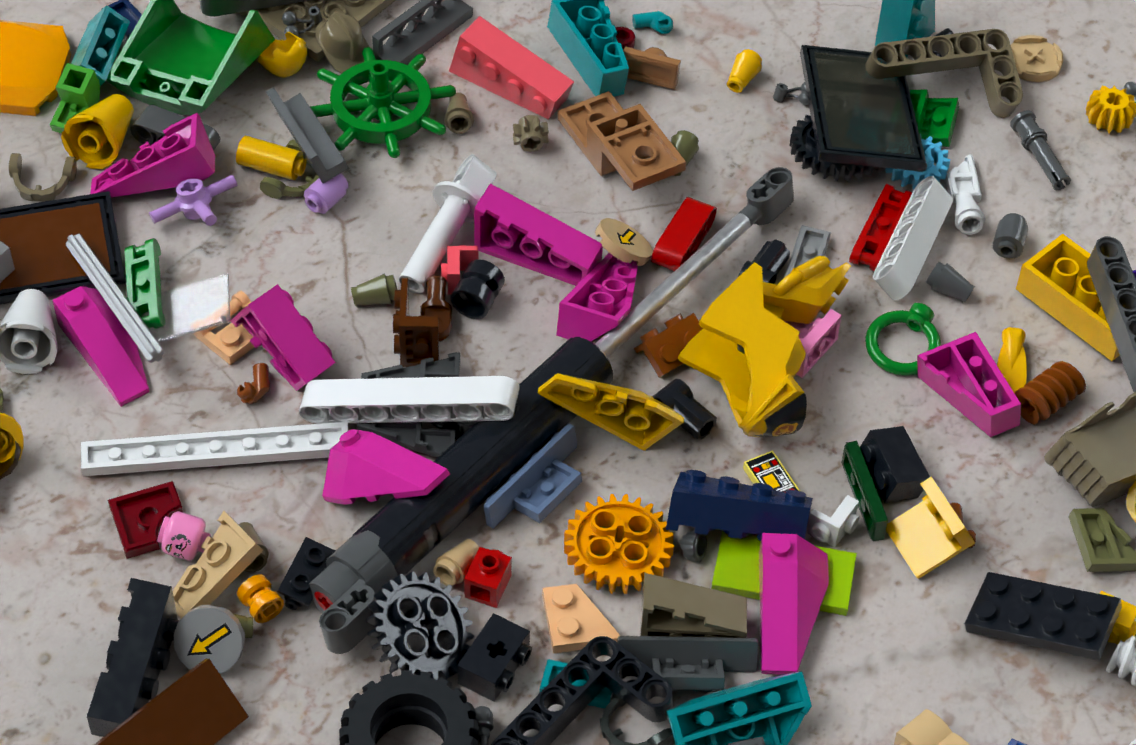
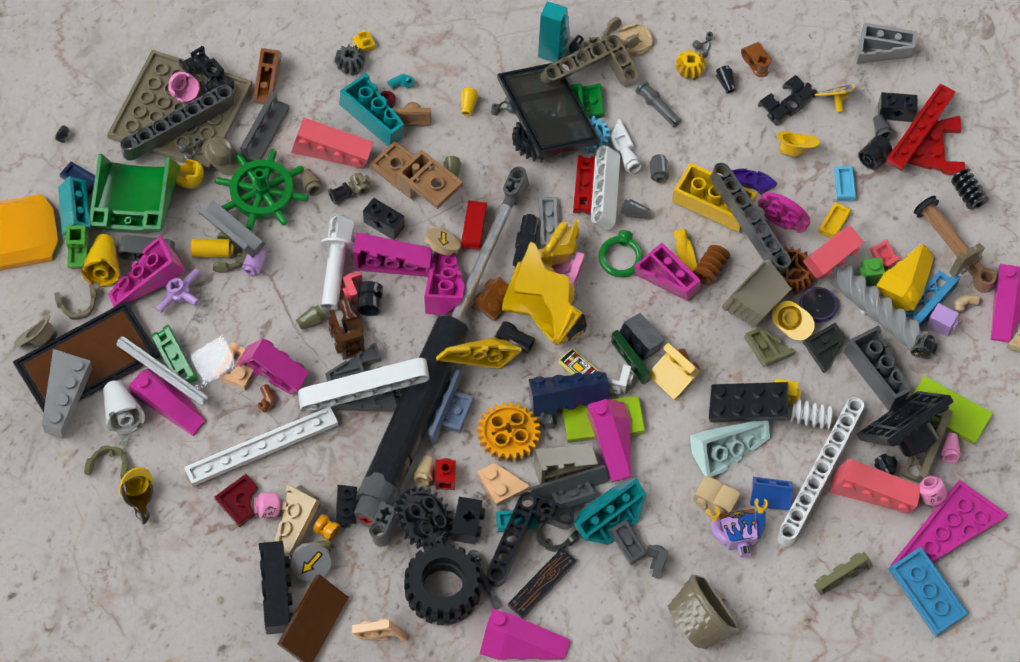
camera: 20 degrees left, 10 degrees up
(374, 466) = (360, 432): dark pink wedge -> none
(496, 138) = (340, 193): none -> black bush
(547, 187) = (383, 218): none -> black brick
(973, 674) = (722, 446): none -> light aqua wedge
(1024, 55) = (612, 25): none -> dark tan piece

